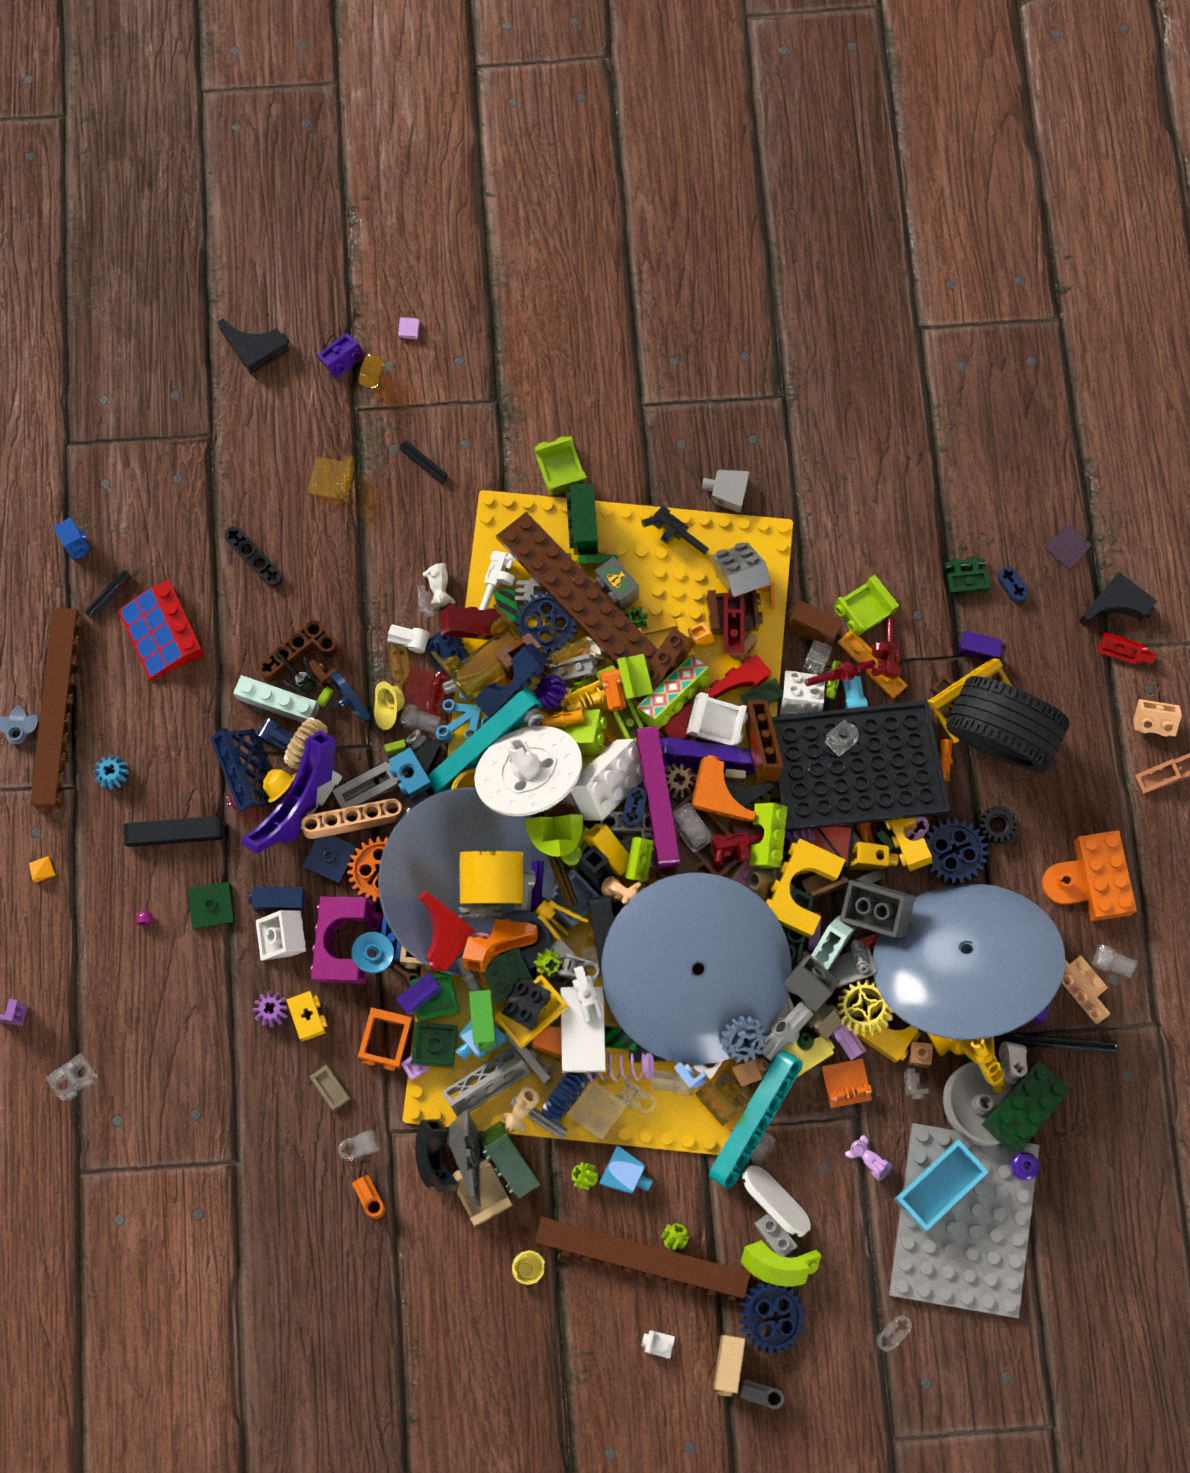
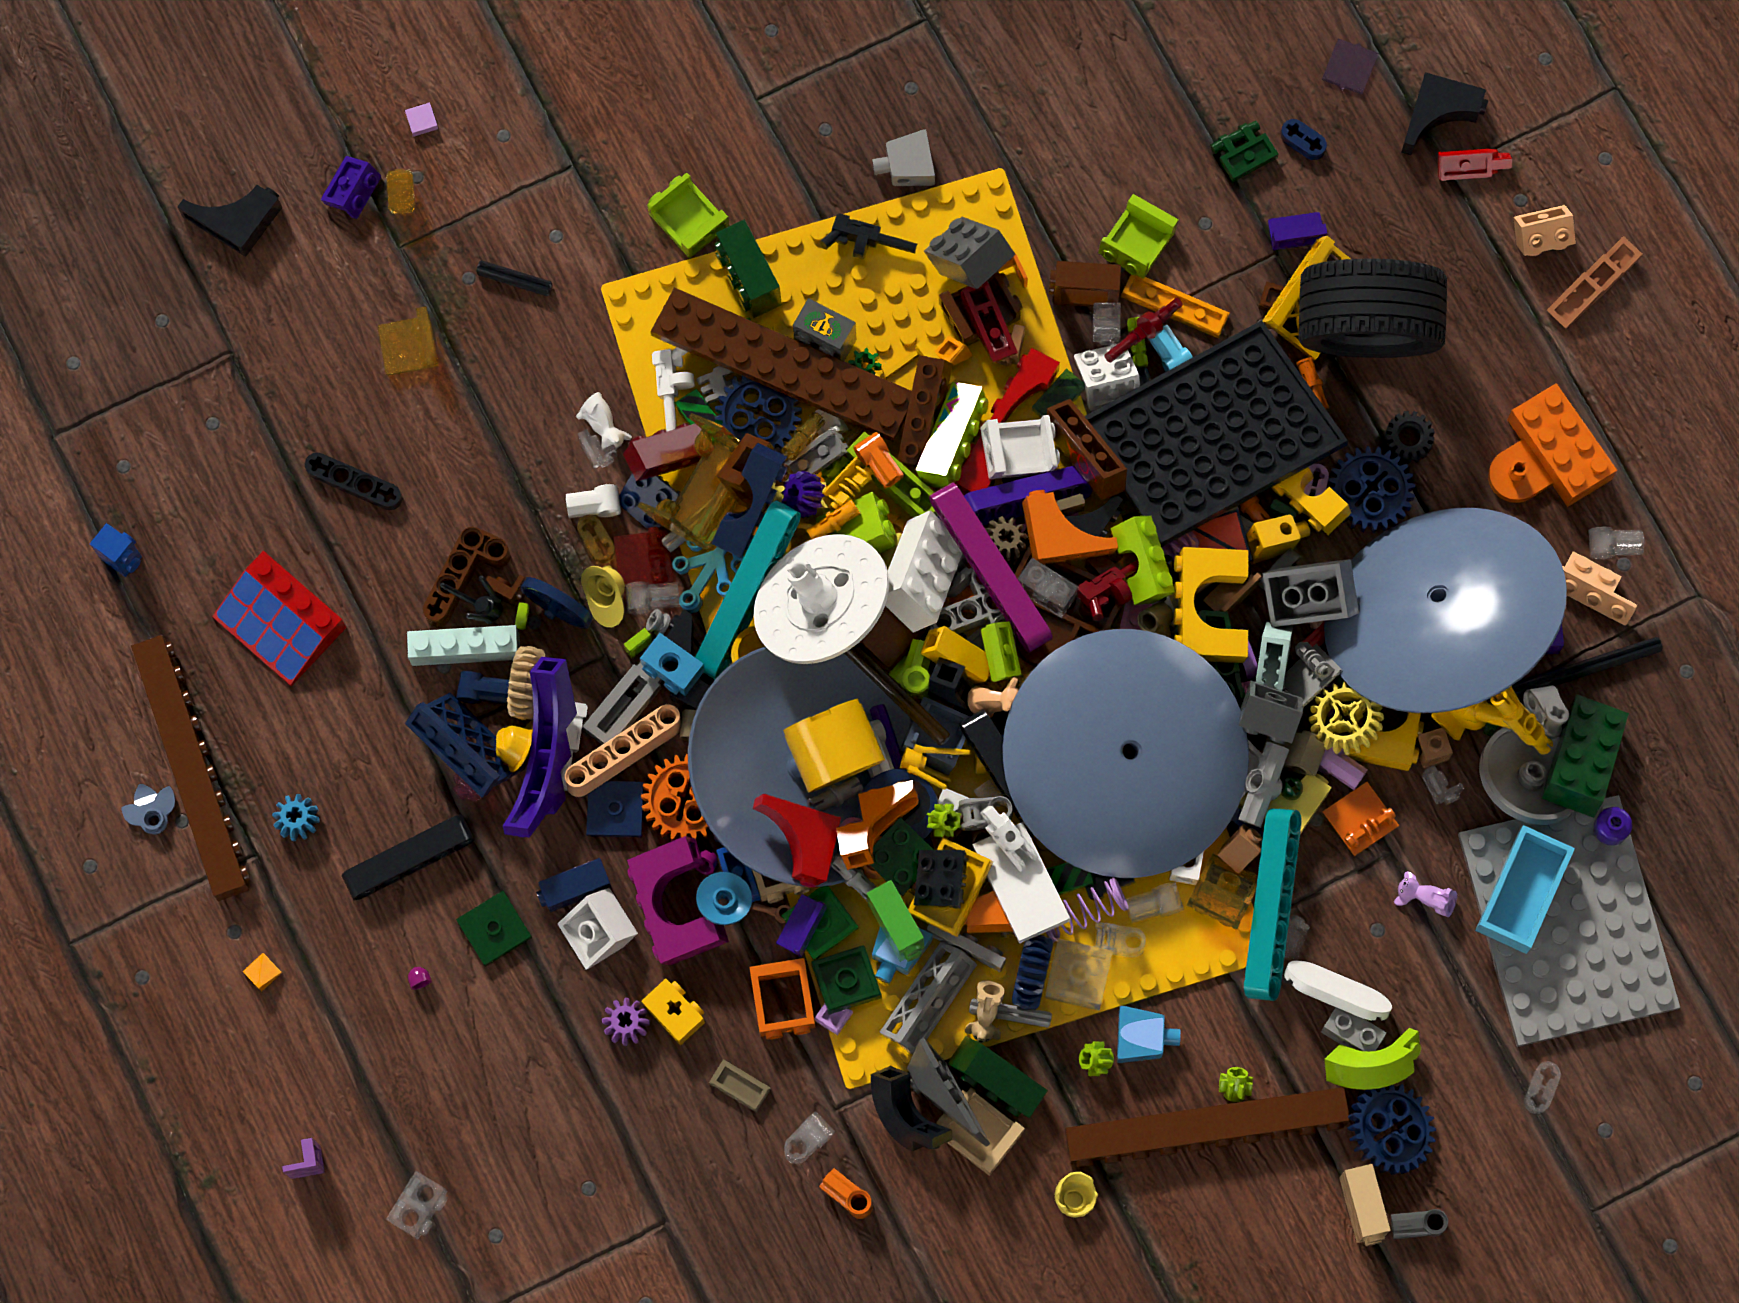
camera: 20 degrees left, 0 degrees up
(107, 594) = (190, 601): black axle -> none
(533, 717) = (797, 534): light grey bush -> none
(555, 835) = (887, 663): lime brick -> none
(596, 558) = (783, 311): green tile -> none
(629, 806) = (974, 591): dark blue beam -> none
(635, 676) = (899, 433): lime panel -> none
(658, 1343) = (1269, 1219): white bracket -> none
(687, 1073) = (1167, 884): light blue bracket -> none
(743, 1039) = (1219, 813): sand blue gear -> none
(839, 744) = (1176, 415): clear brick -> none
(888, 652) = (1189, 281): dark red piece -> none

